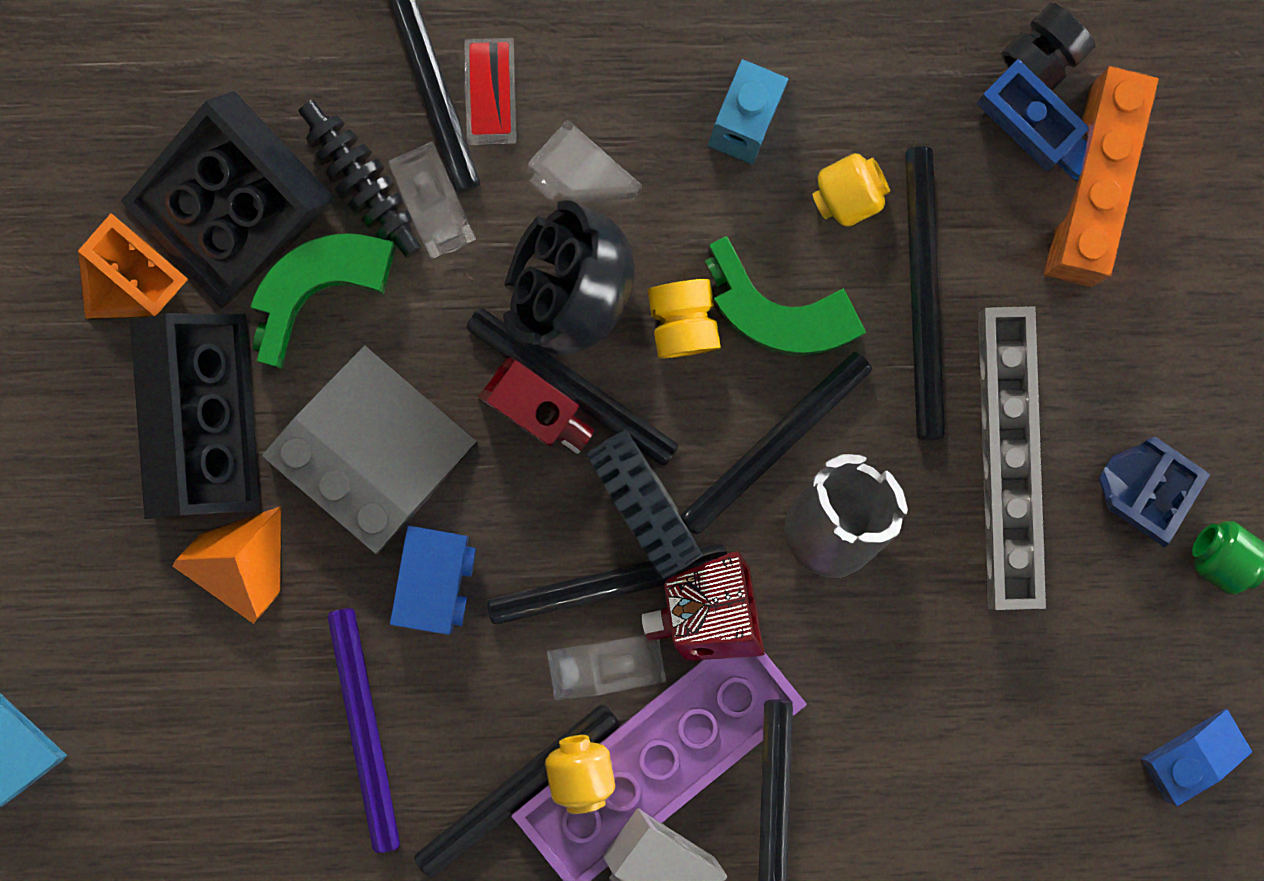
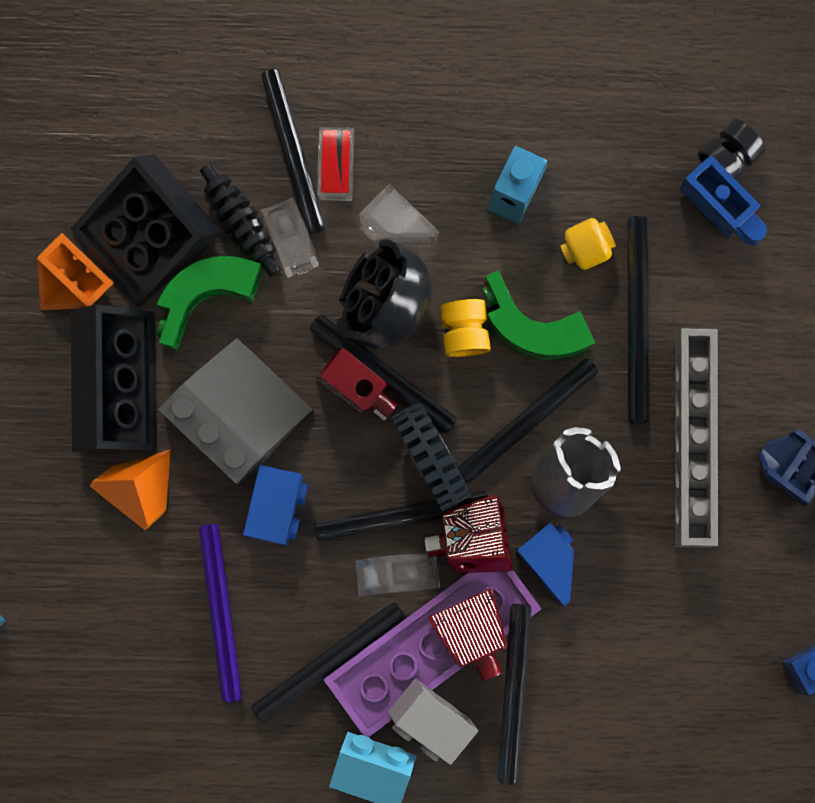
camera: 10 degrees right, 5 degrees down
(580, 774) = (374, 650): yellow head -> none
(713, 743) = (472, 633): none -> dark red torso
(817, 636) = (551, 560): none -> blue slope
(1117, 122) = (780, 202): orange arch -> none

